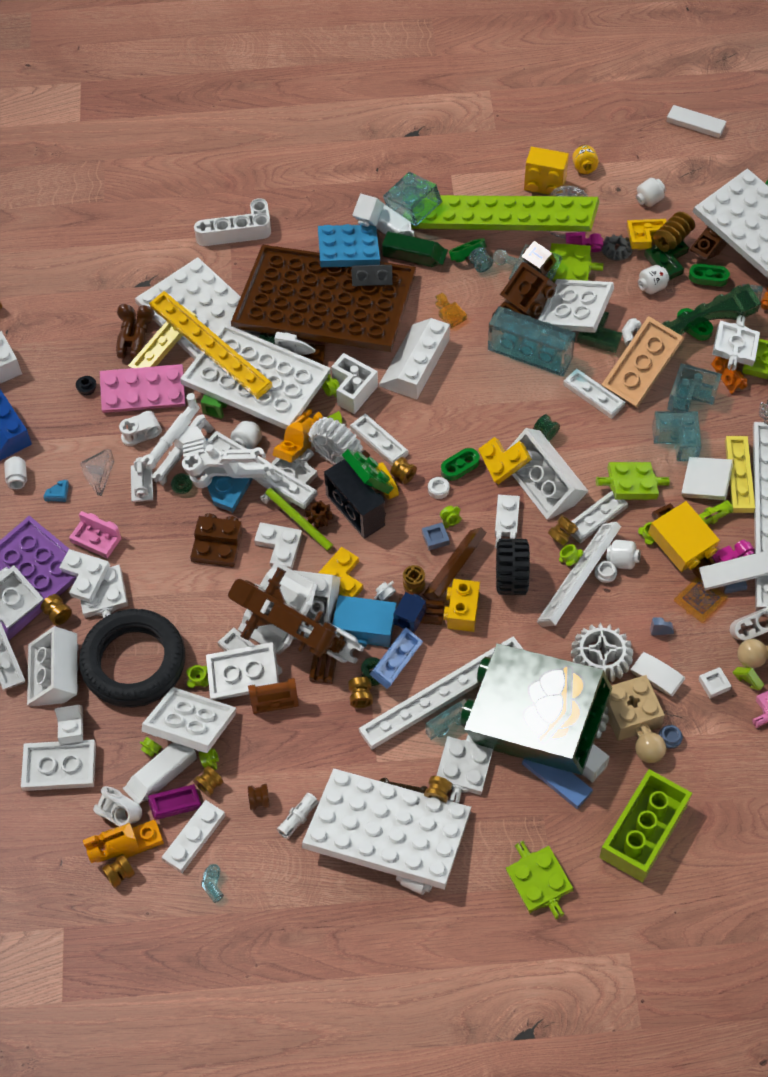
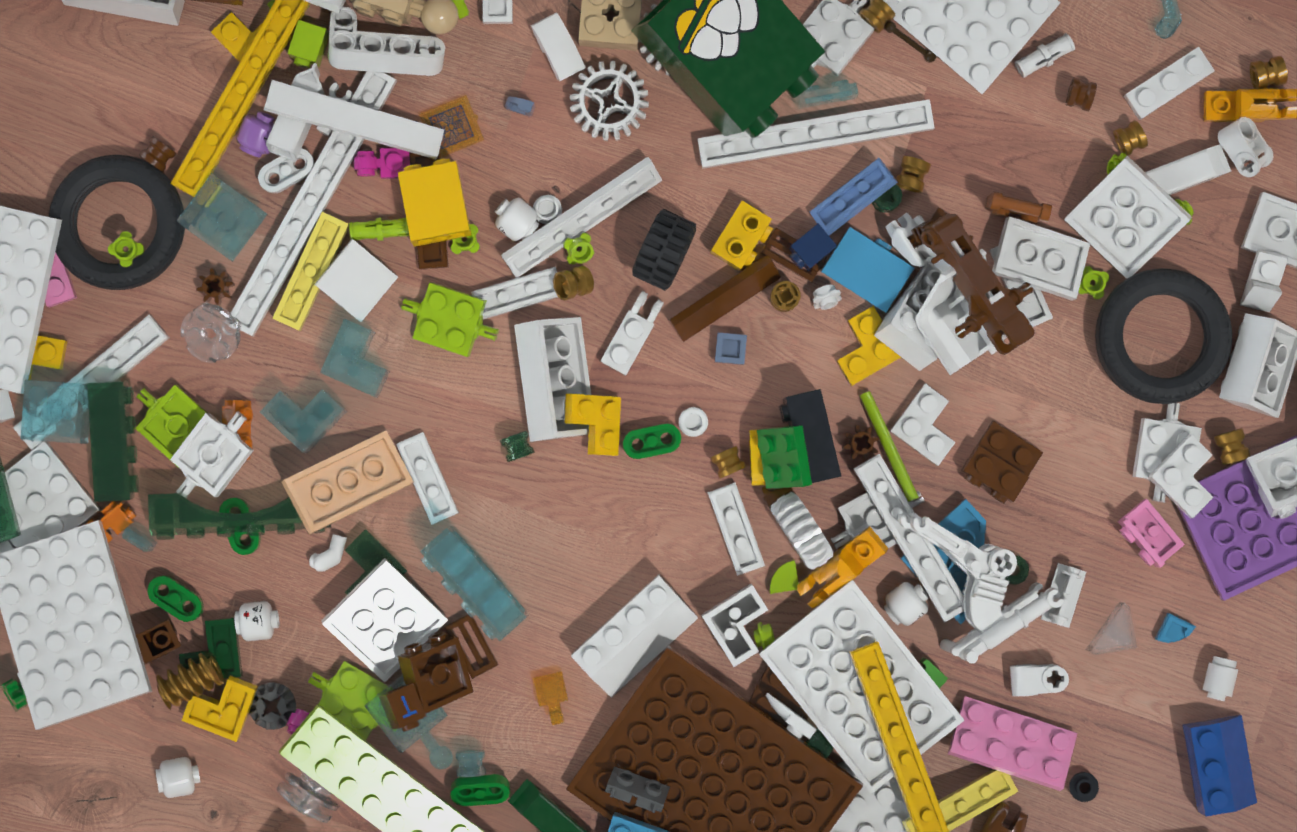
camera: 160 degrees left, 30 degrees up
(174, 802) = (1177, 131): magenta tile -> none
(450, 516) = (700, 368): lime plate -> none

